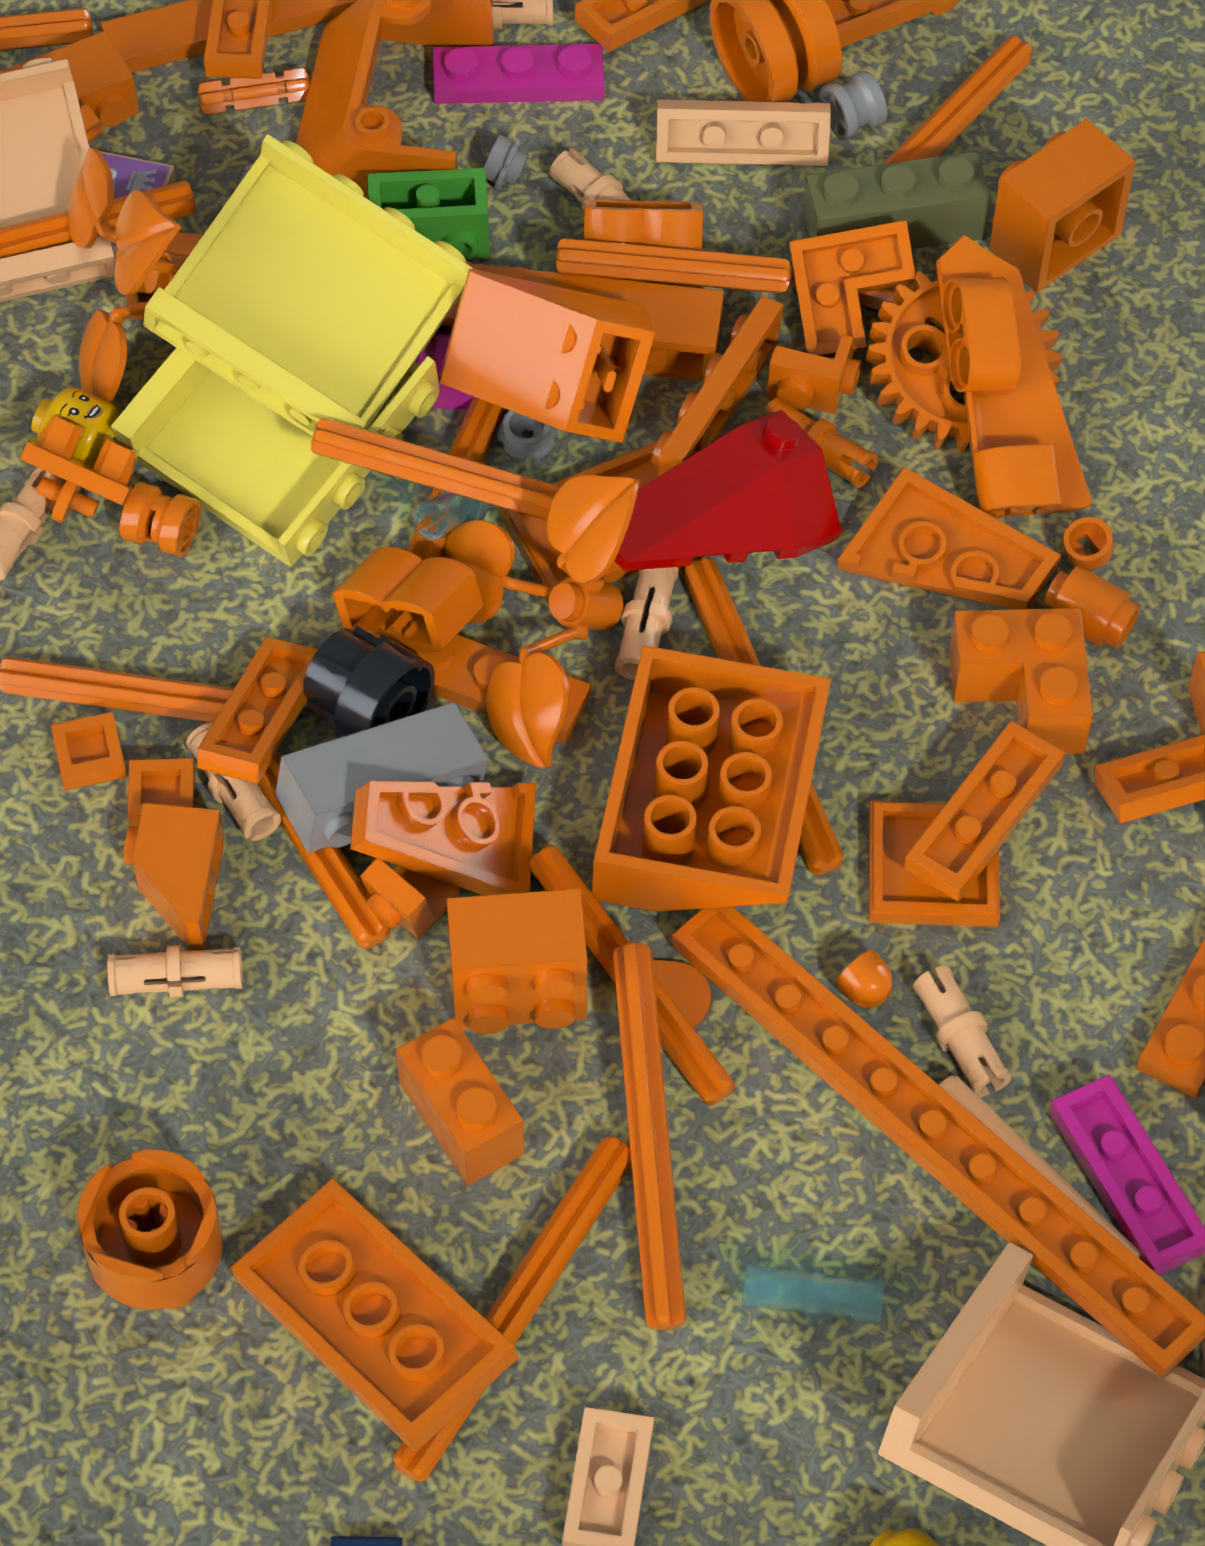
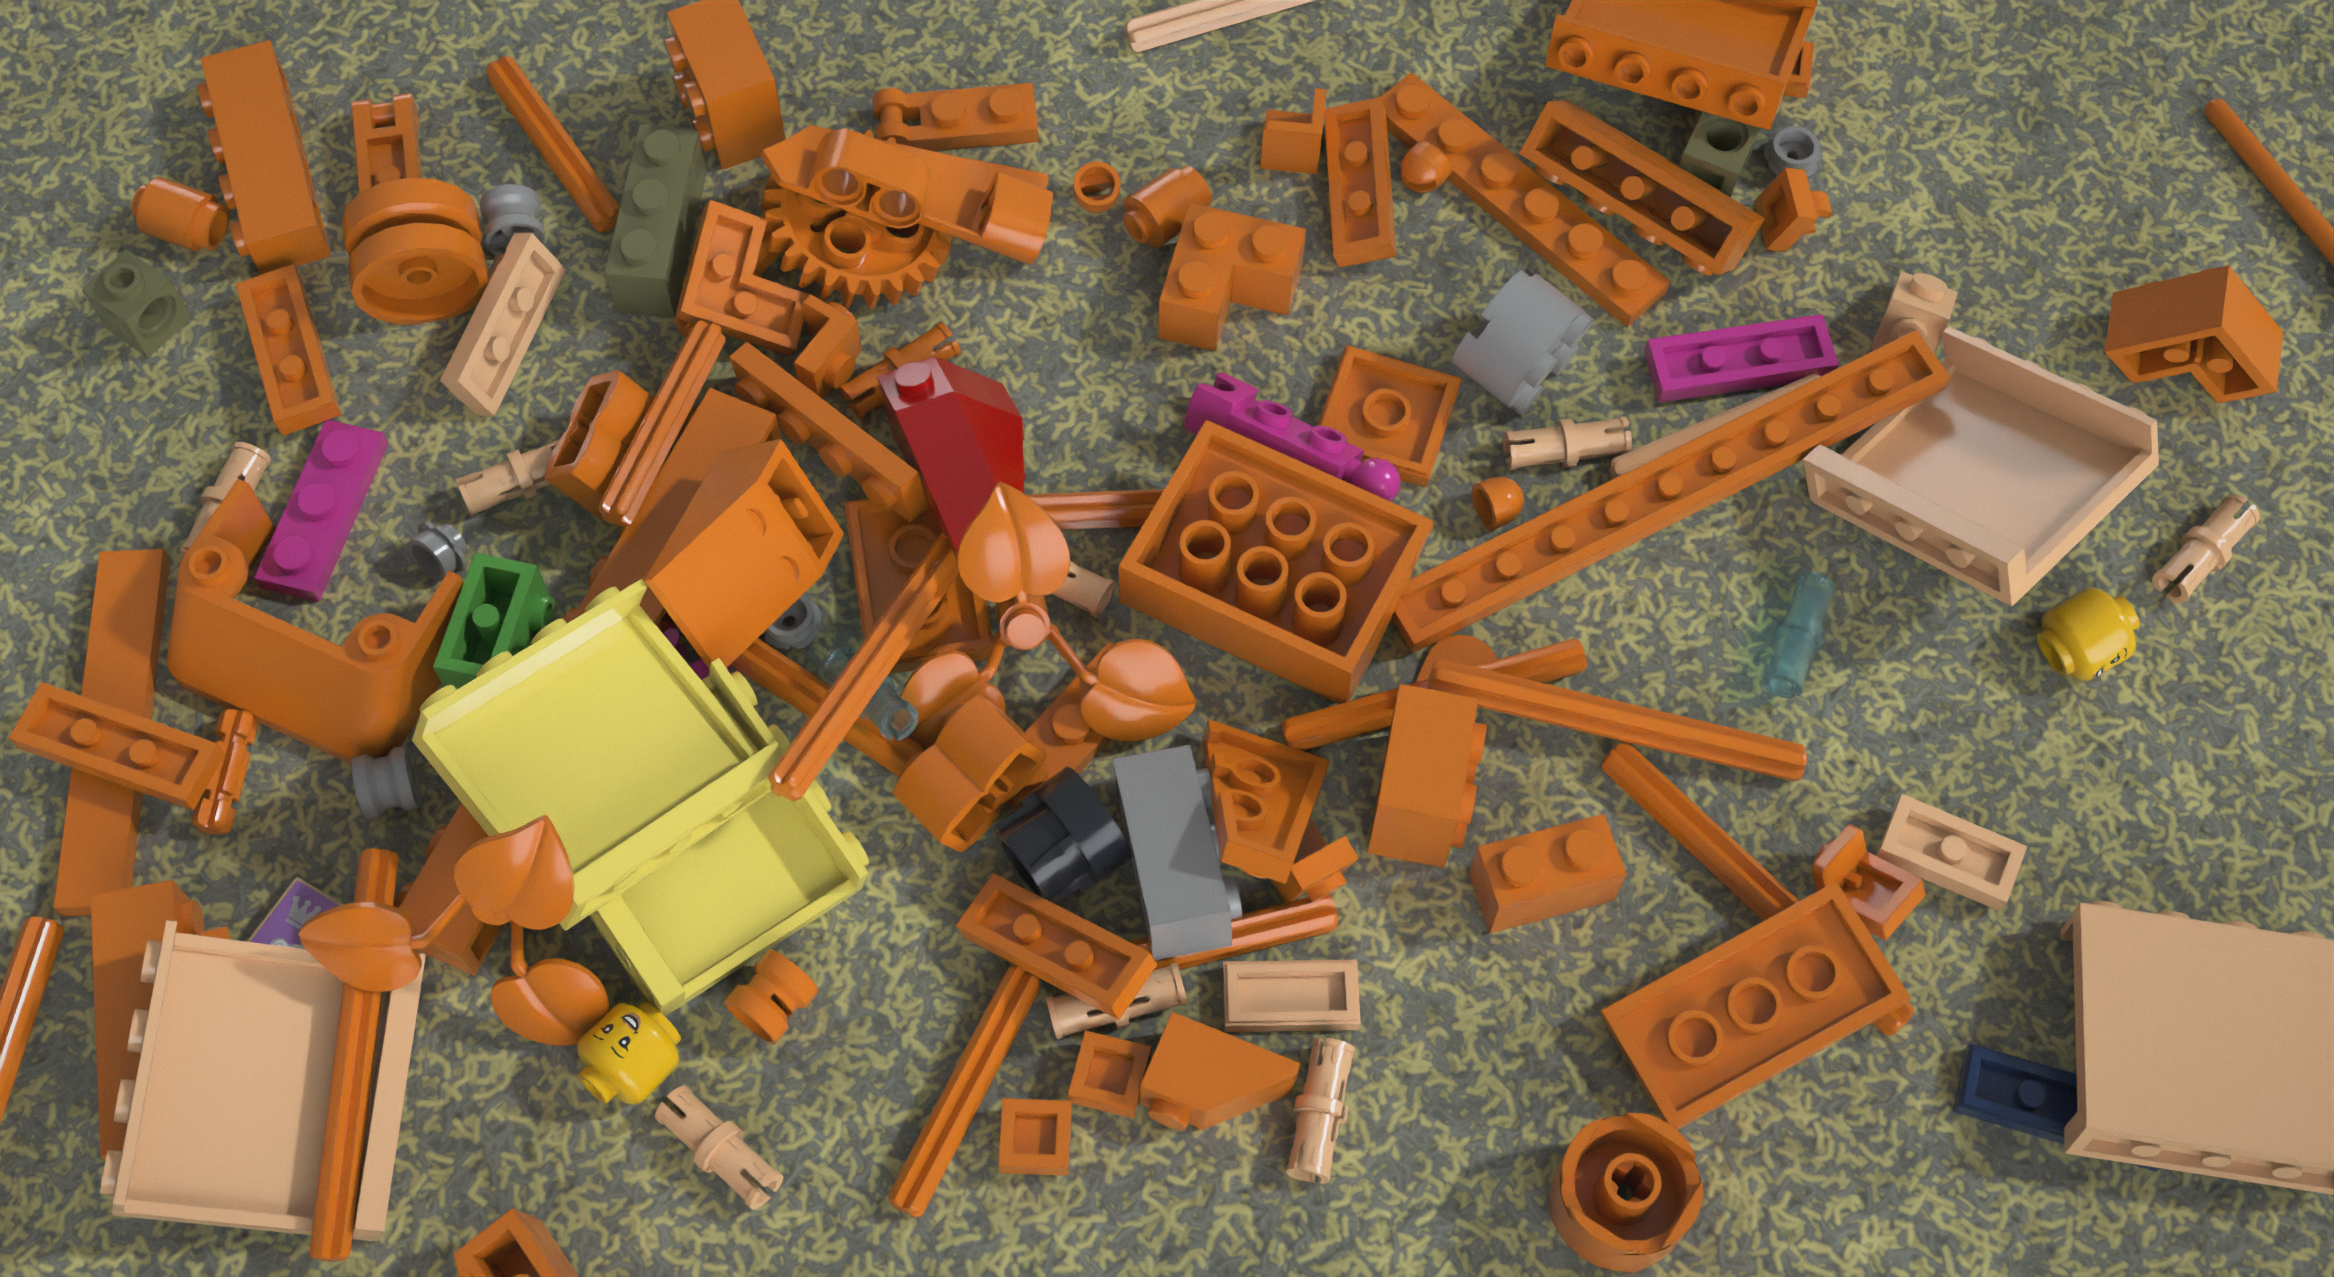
camera: 75 degrees left, 5 degrees up
(55, 454) = (705, 1065): orange hips -> none
(283, 925) = (1291, 995): none -> light nougat tile
(542, 1398) = (1875, 888): none -> orange bracket
(854, 770) = (1234, 407): none -> dark pink plate
(948, 547) = (1057, 299): orange wing -> none
(984, 811) = (1365, 349): orange plate -> none
(1048, 945) = (1522, 339): none -> light grey brick
(1126, 413) = (958, 117): none -> orange plate

